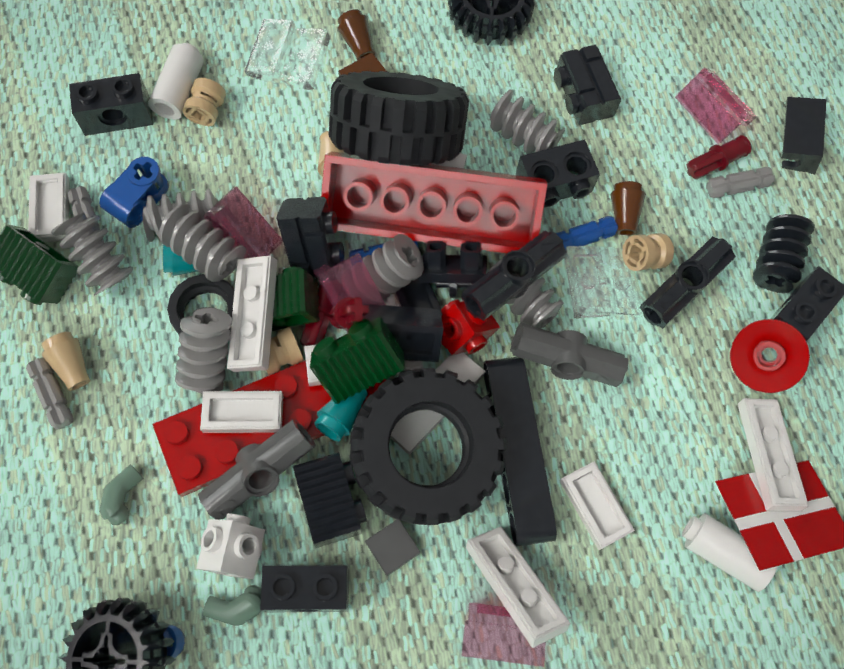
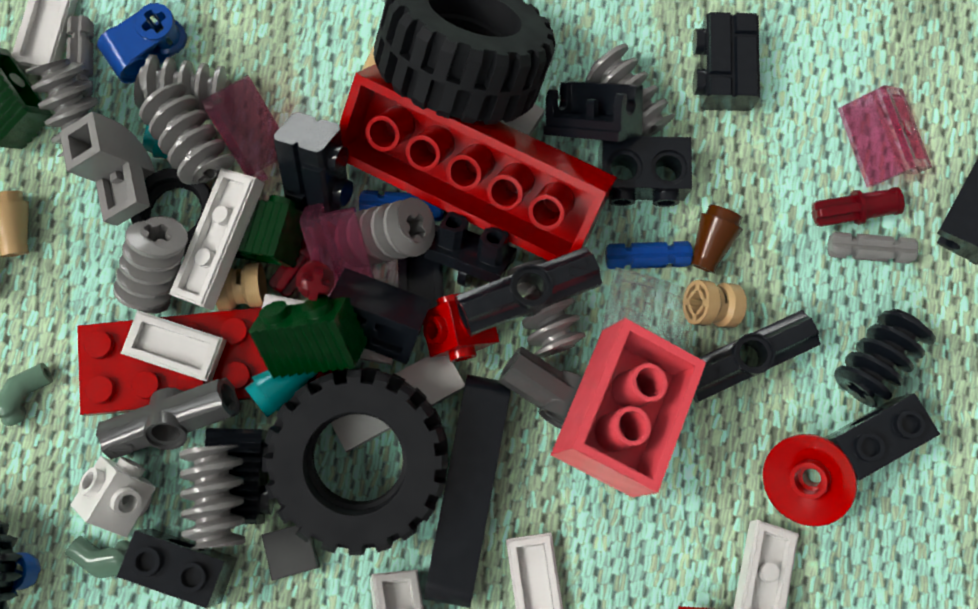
camera: 25 degrees right, 10 degrees up
(146, 279) = (114, 160): none -> light grey brick
(319, 511) = (212, 496): none -> light grey piece
(507, 139) = (595, 111): none -> black hinge
(624, 338) = (629, 409): none -> coral brick

